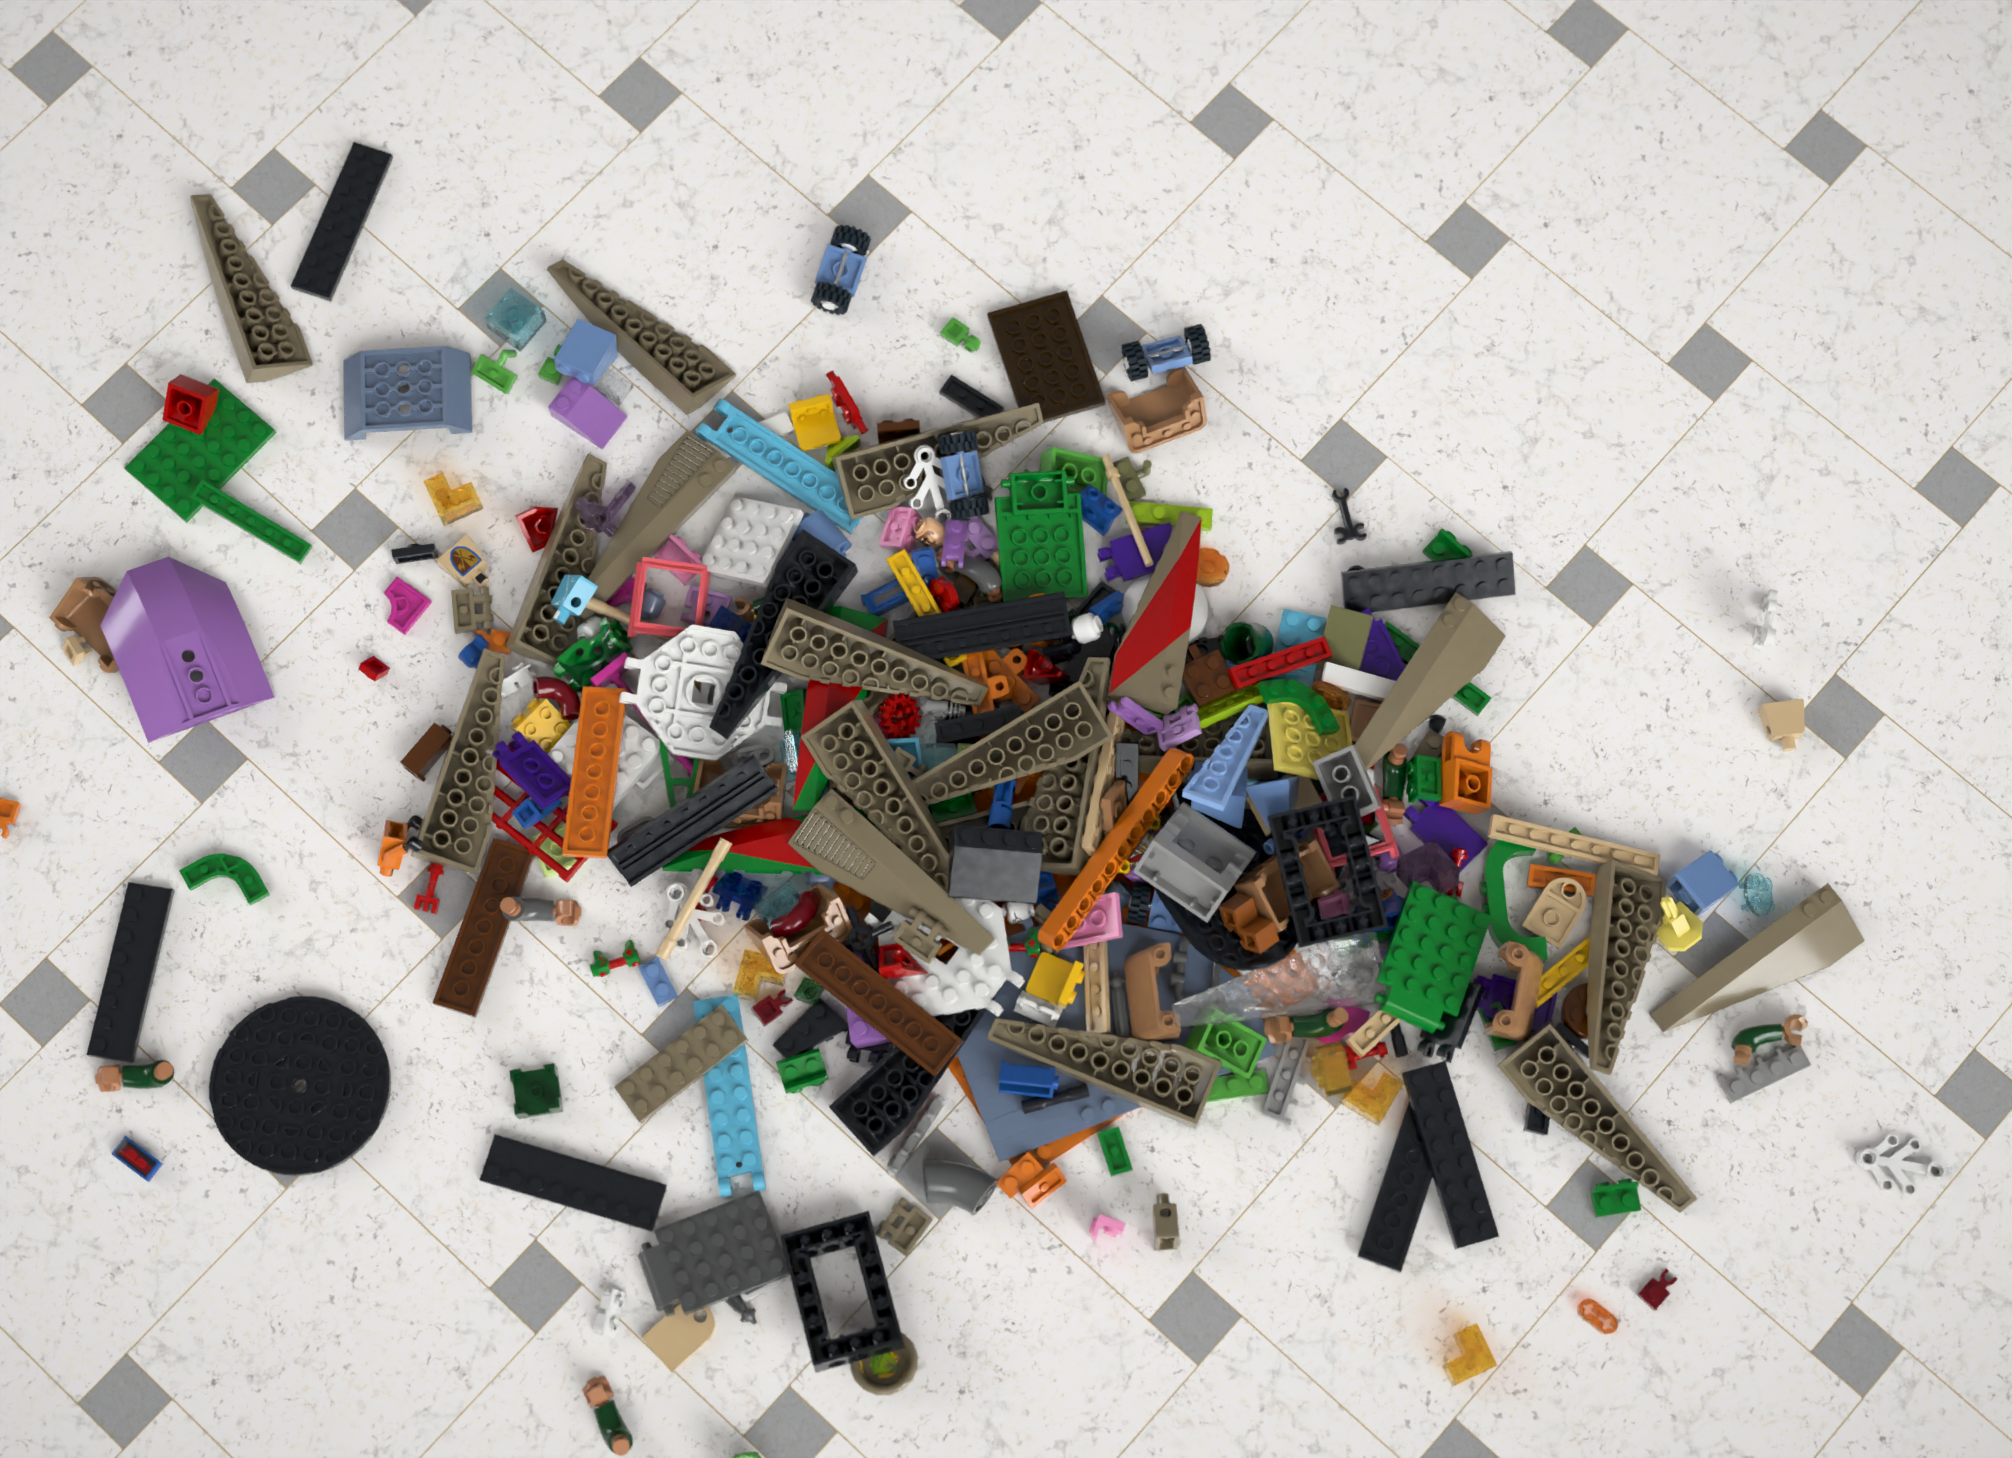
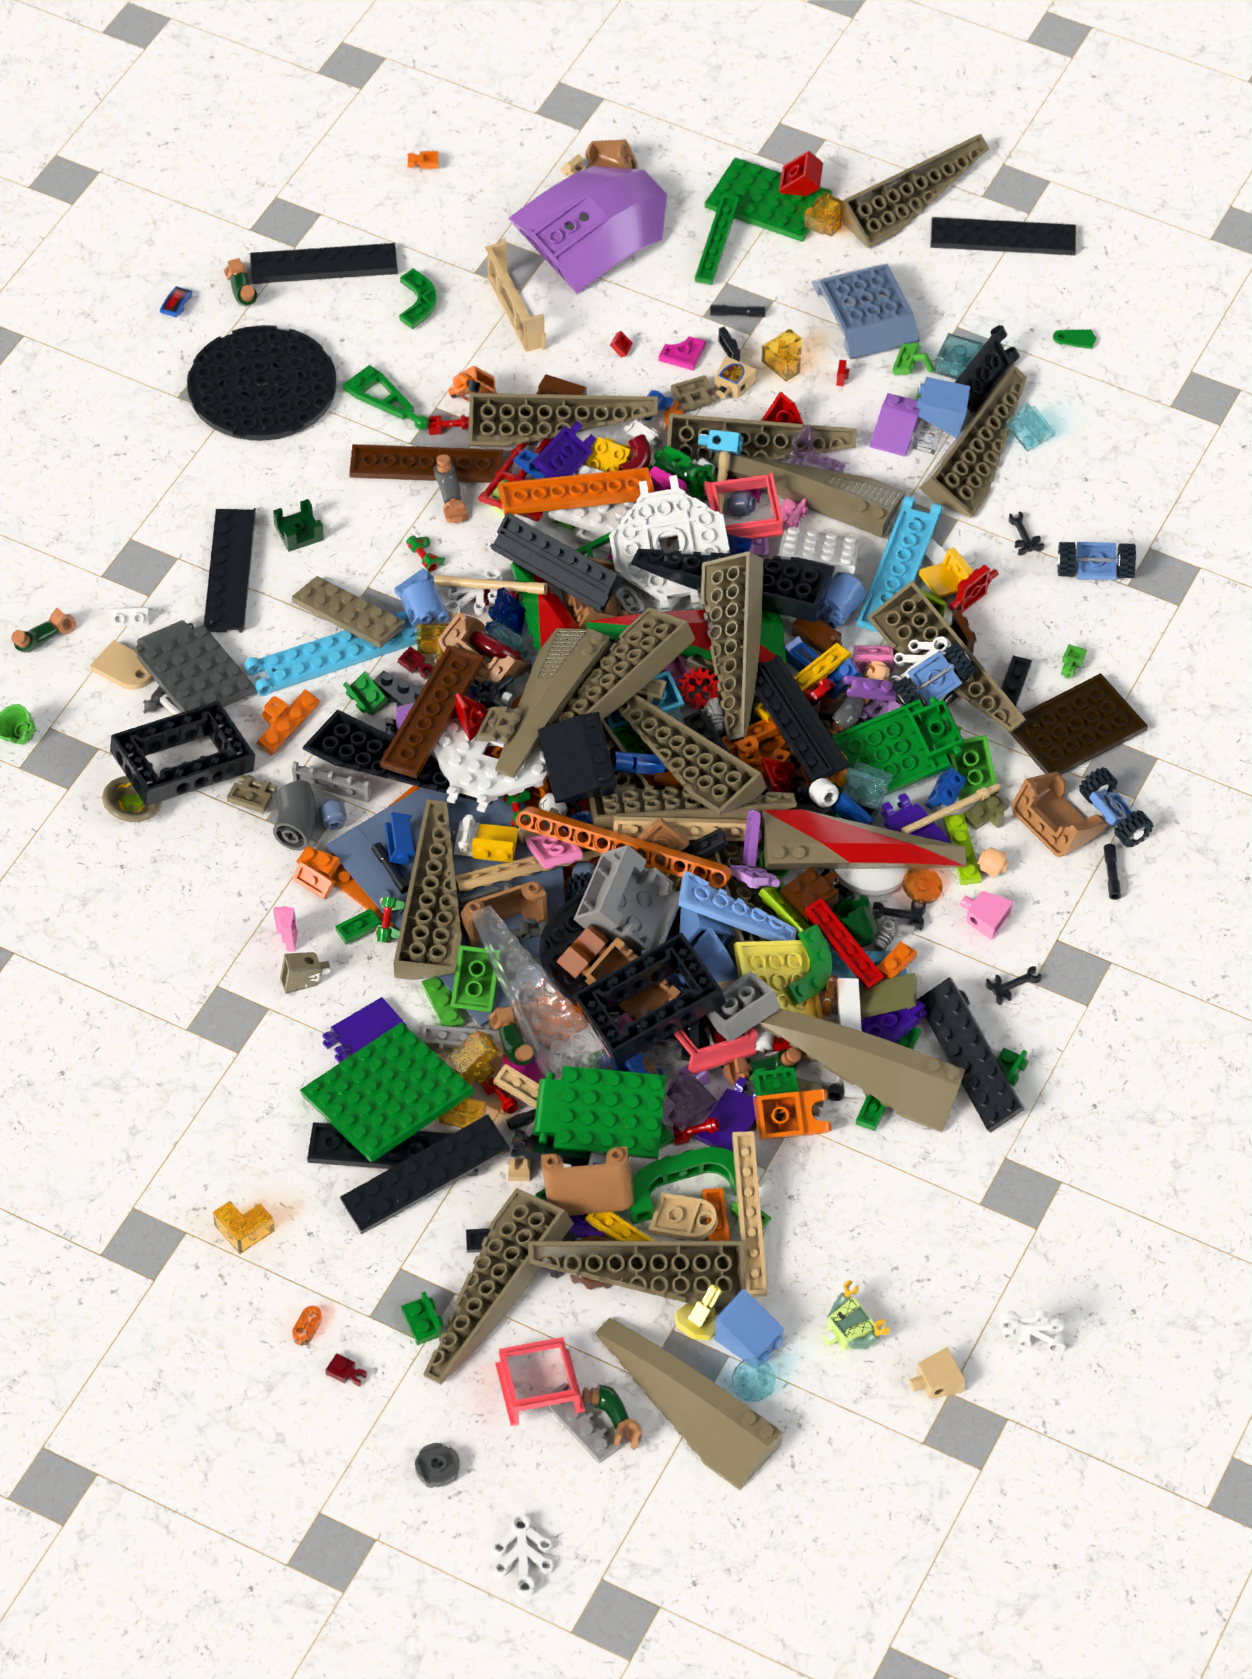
camera: 75 degrees right, 20 degrees down
(261, 396) = (825, 215): none -> clear yellow brick
(274, 771) = (528, 329): none -> tan piece
(334, 968) = (369, 377): none -> green plate
(357, 542) = (724, 310): none -> black piece
(494, 446) = (842, 373): none -> red plate
(516, 194) = (1077, 338): none -> green piece
(541, 293) = (987, 368): none -> black hinge
(635, 277) = (1030, 427): none -> clear light blue bracket
(705, 978) = (424, 604): none -> medium blue cylinder
(789, 331) = (1026, 543): none -> black bar
(812, 1167) = (285, 719): none -> orange plate
(868, 570) = (816, 635): none -> reddish brown brick
(960, 1144) = (333, 814): none -> sand blue head
(1078, 582) = (867, 785): none -> clear light blue bracket
(1129, 1123) = (386, 931): none -> green piece
(1198, 490) = (993, 861): none -> light nougat head
(1222, 379) = (1113, 881): none -> black piece
(1239, 585) = (914, 915): none -> black bar
(1248, 1175) = (361, 1028): none -> dark purple tile
(1256, 613) = (888, 931): none -> light grey piece
(1259, 515) = (987, 912): none -> bright pink torso
(1302, 619) = (897, 961): none -> orange plate
(1344, 1170) = (386, 1092): none -> green plate
(1460, 1060) = (519, 1169): none -> tan tile
(1709, 1132) = (514, 1405): none -> coral piece
(1713, 785) = (851, 1324): none -> torso
(1776, 1232) = (437, 1477): none -> dark grey plate

